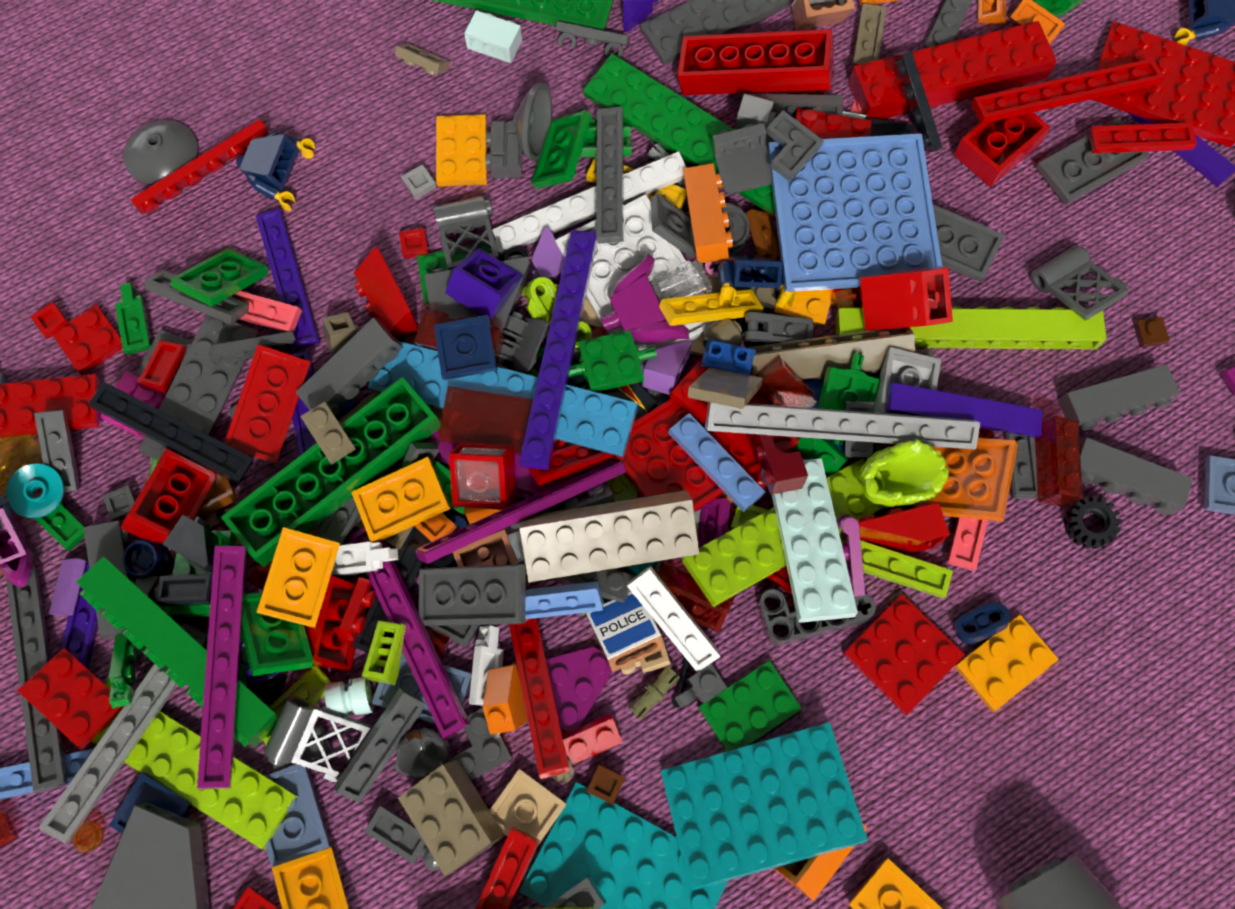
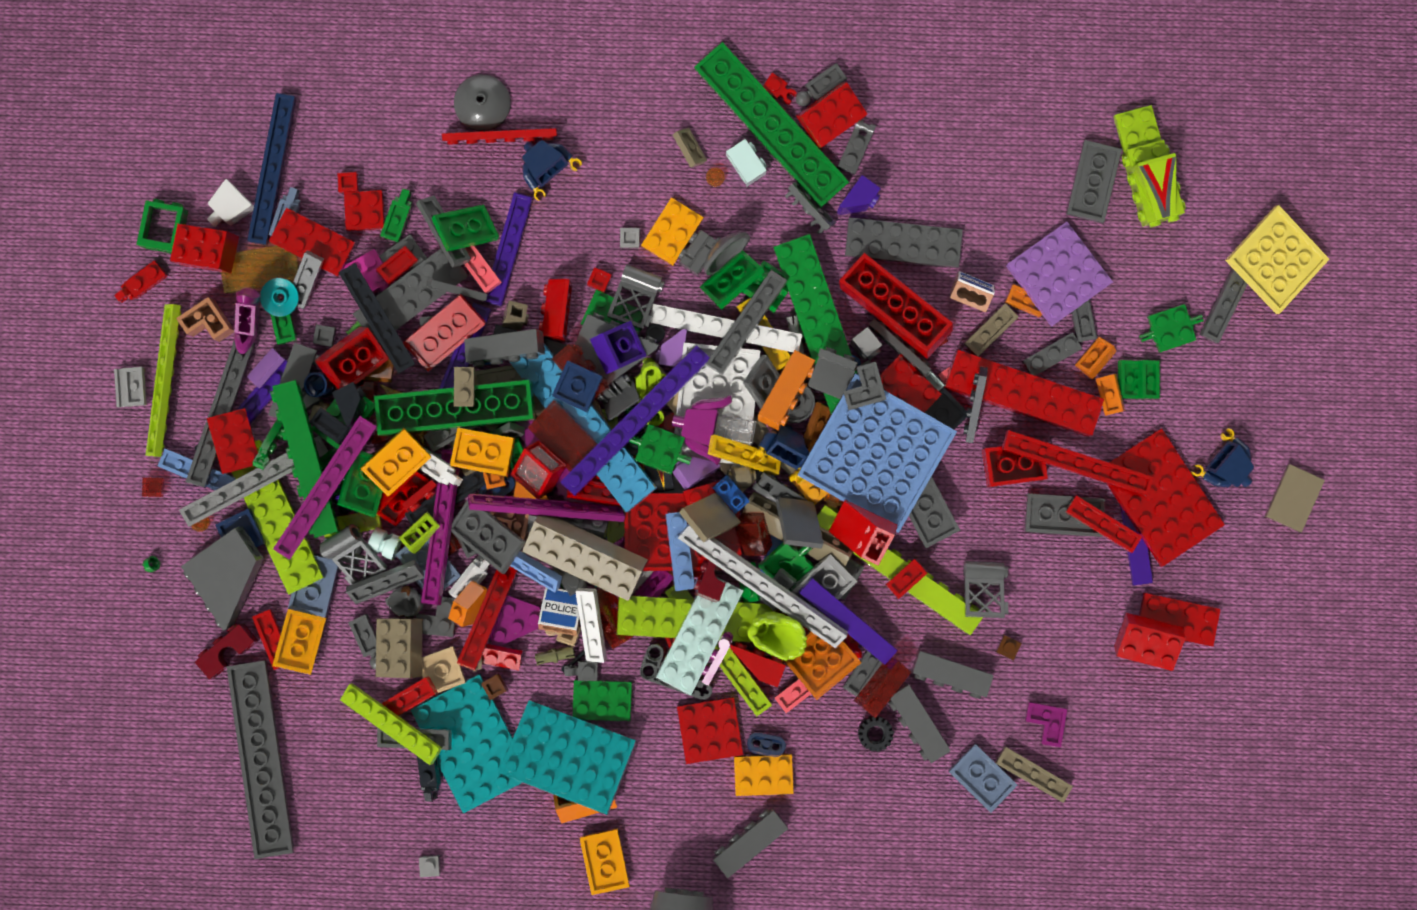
camera: 35 degrees right, 15 degrees up
(470, 71) = (715, 177): none -> clear orange plate
(828, 337) = (799, 522): none -> dark grey tile
(990, 322) = (906, 578): none -> red plate
(1057, 756) = (750, 842): none -> dark grey brick

